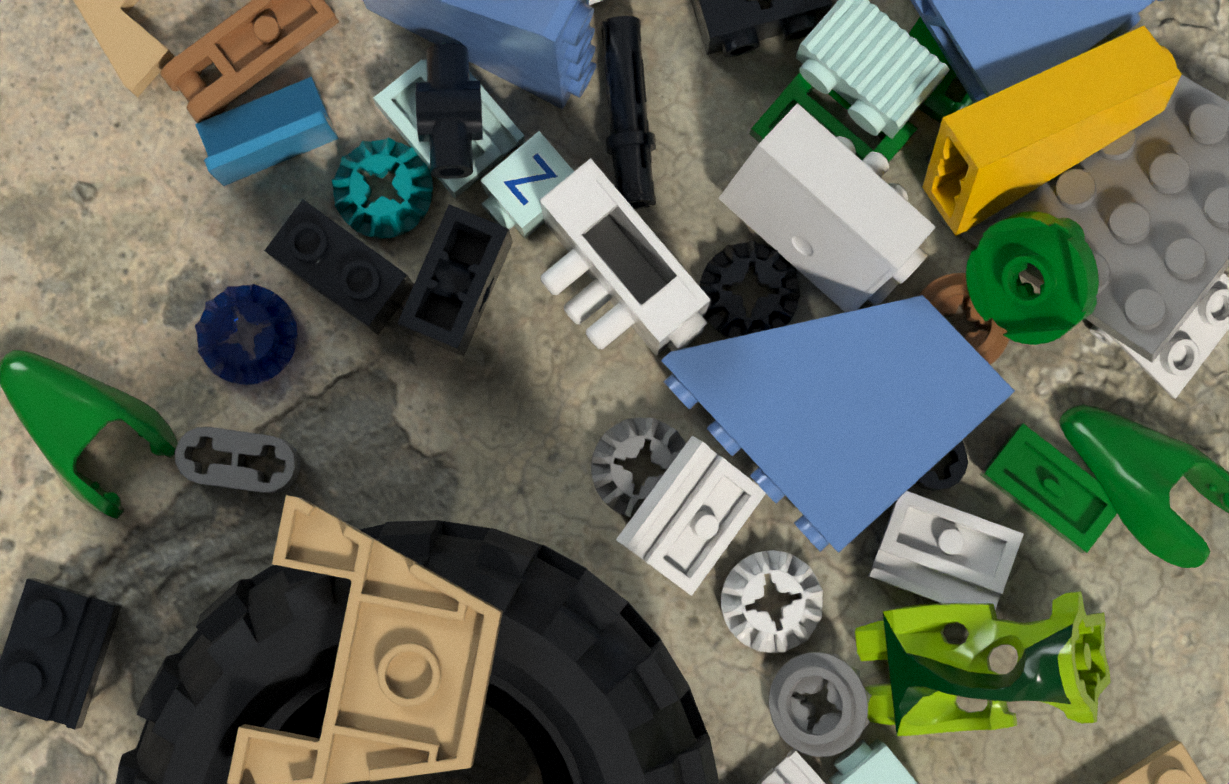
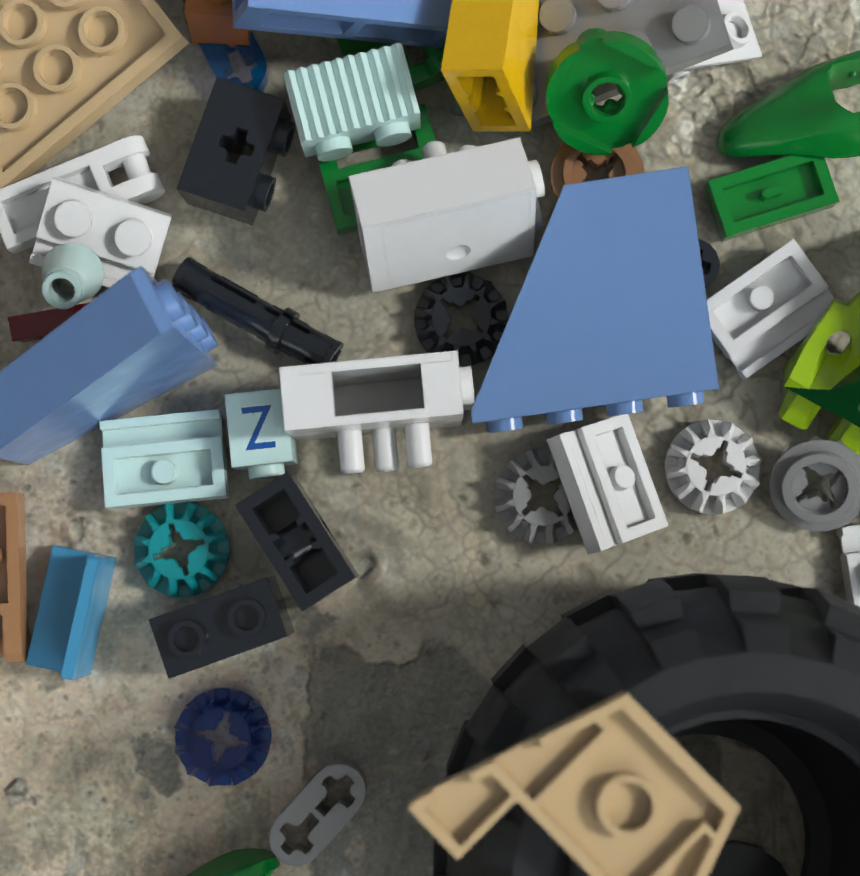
camera: 55 degrees left, 0 degrees up
(449, 111) = (159, 454): black axle -> none

